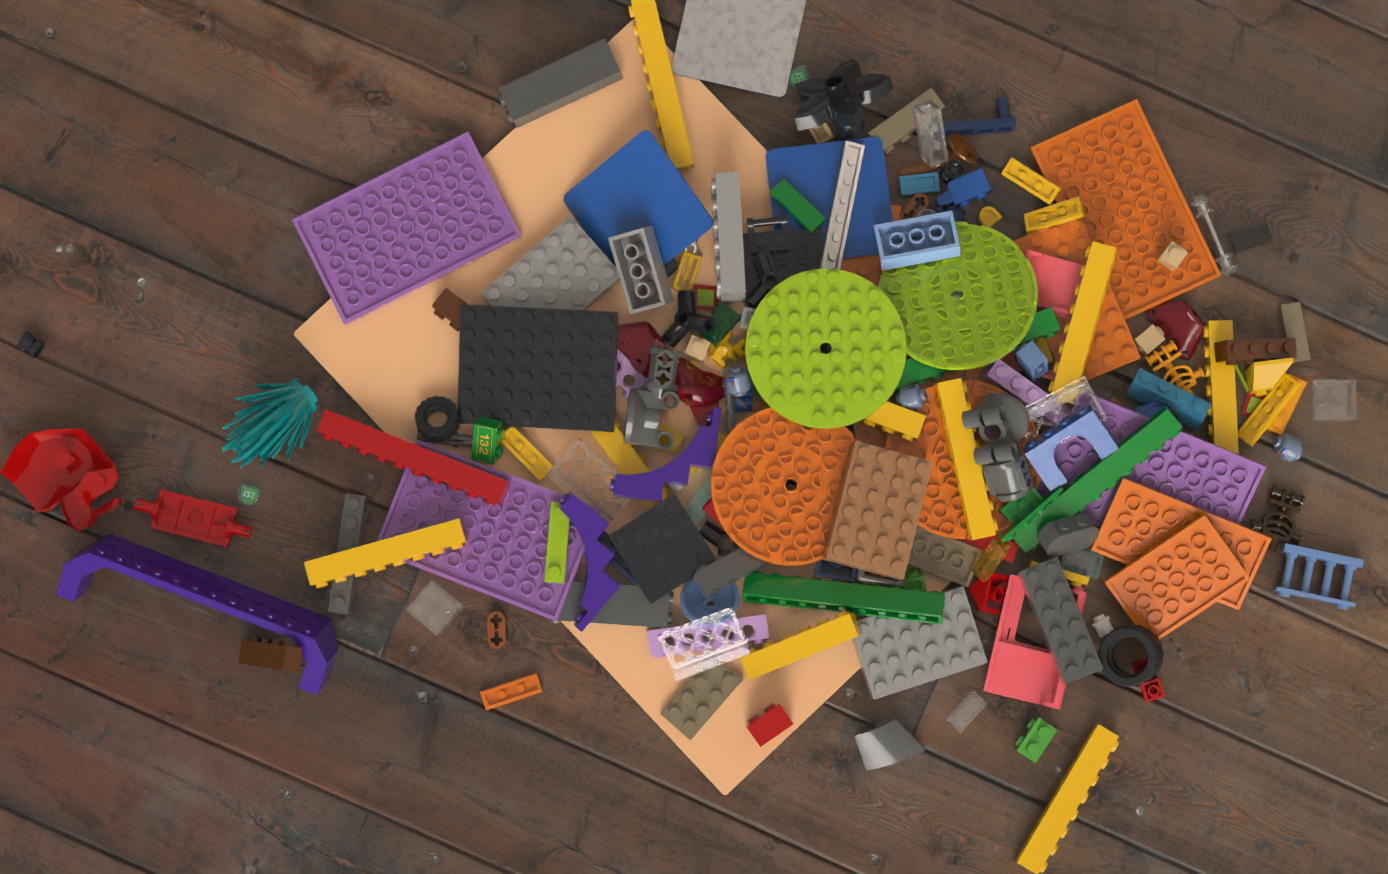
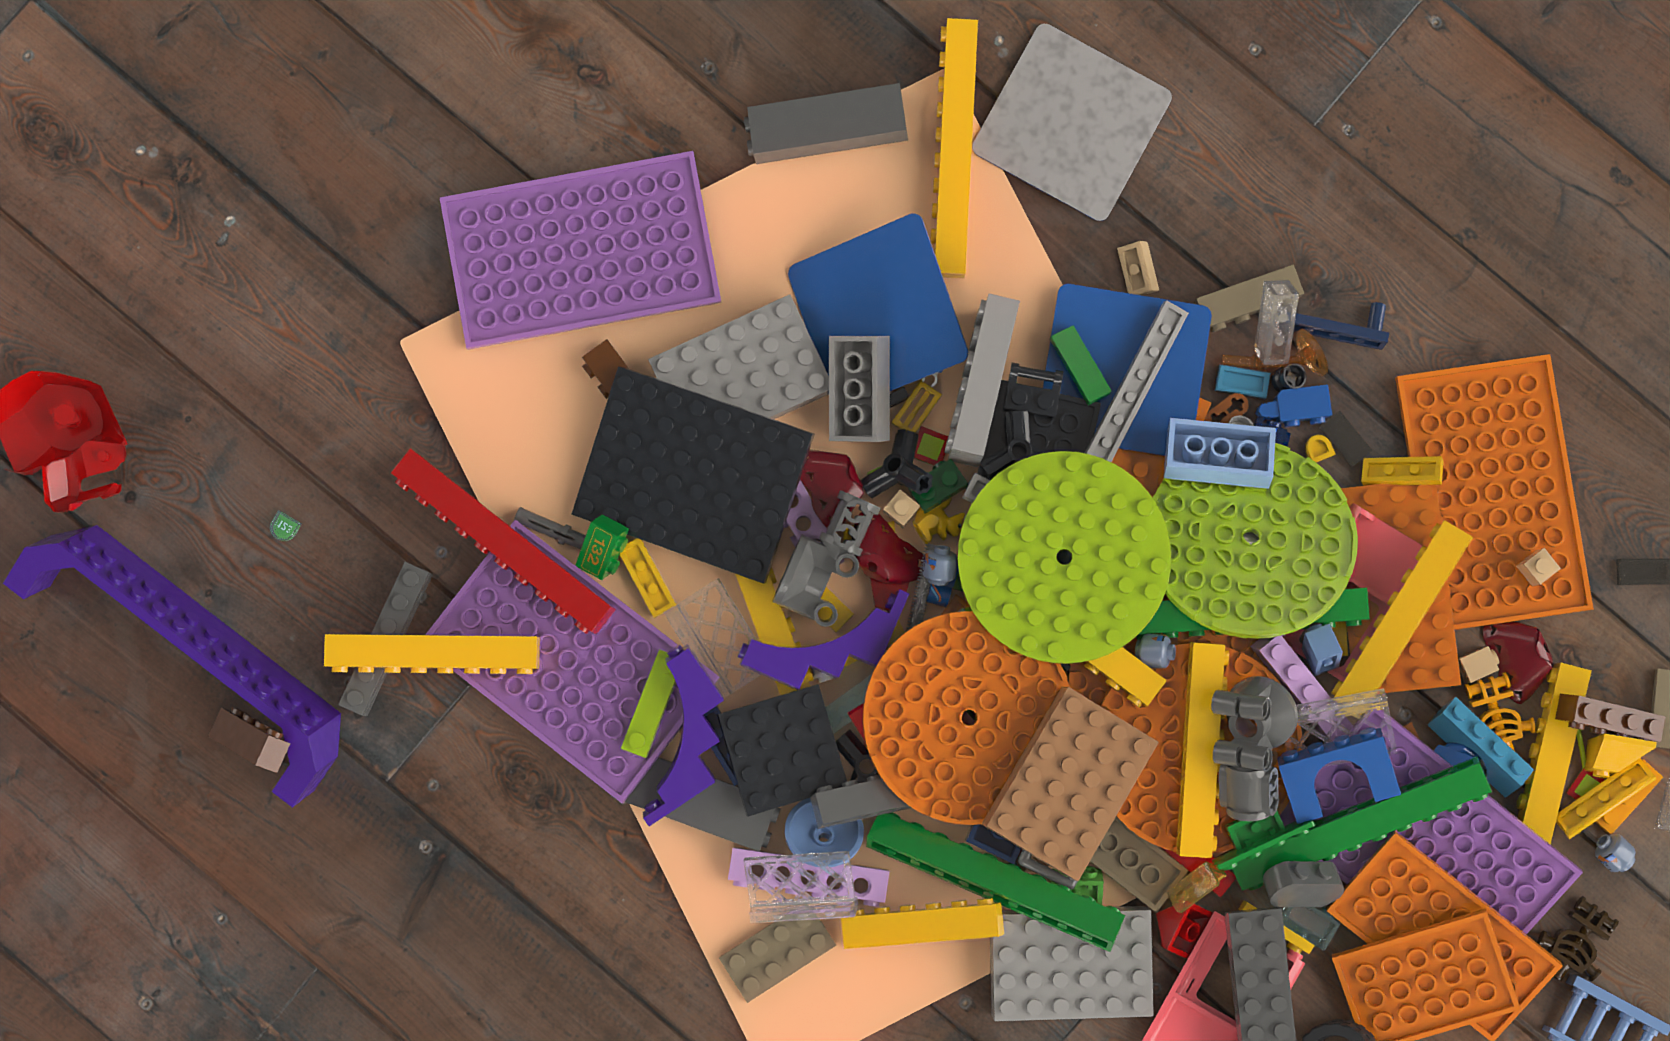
camera: 15 degrees right, 0 degrees up
(31, 345) = (66, 257): black wheel -> none
(193, 518) = (206, 536): red plate -> none
(271, 427) = (338, 450): teal plant -> none
(435, 607) = (475, 739): clear brick -> none
(437, 404) = (547, 520): black tyre -> none
(501, 629) = (551, 790): dark orange beam -> none
(511, 691) = (540, 872): orange tile -> none
(769, 724) = (852, 1013): red brick -> none
(799, 74) = (1131, 203): clear light blue tile -> none
(839, 99) = (1173, 245): black plant -> none
(1031, 181) = (1385, 419): yellow tile -> none
(1102, 625) = (1313, 1010): white hose -> none
(1225, 261) = (1593, 510): clear axle -> none

